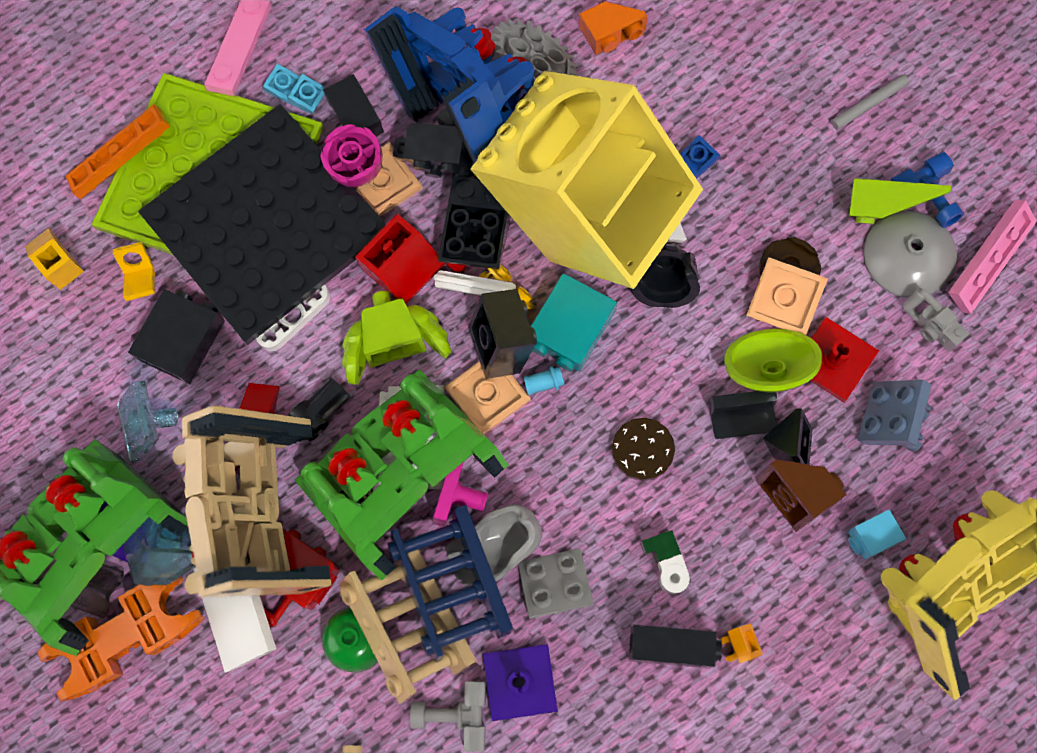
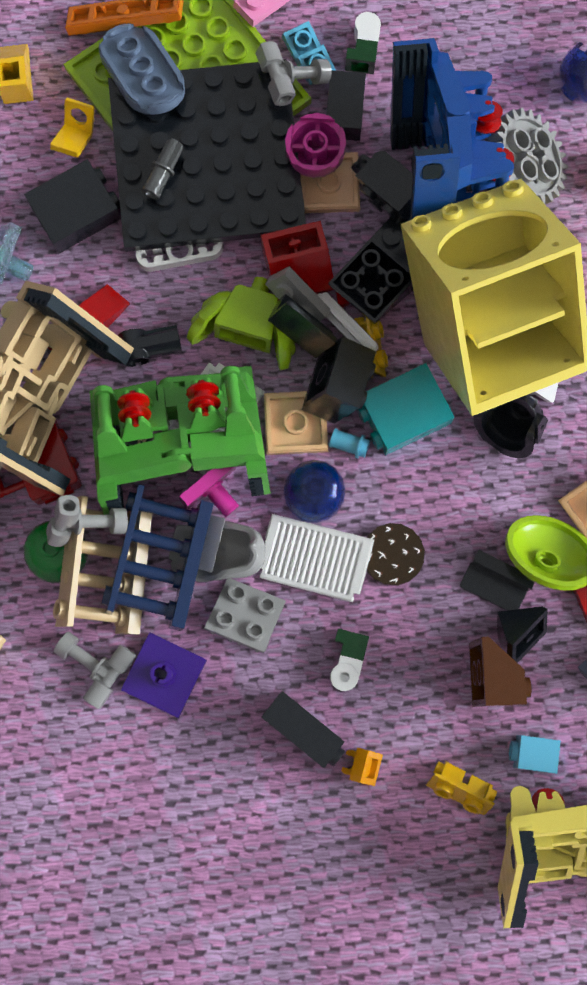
camera: 25 degrees right, 5 degrees up
(163, 185) = (142, 69): none -> sand blue tile
(235, 255) = (162, 169): none -> dark grey axle
(287, 114) = (283, 72): none -> light grey bar
(335, 47) = (366, 35): none -> leg
(353, 598) = (70, 518): none -> light grey bar
(419, 287) = (290, 283): none -> light grey plate
(440, 309) = (301, 326): none -> black panel
(487, 541) = (211, 543): none -> white sticker
(541, 440) = (314, 491): none -> clear blue cylinder
(581, 495) = (315, 558): none -> white window
(851, 605) = (475, 796): none -> yellow hinge

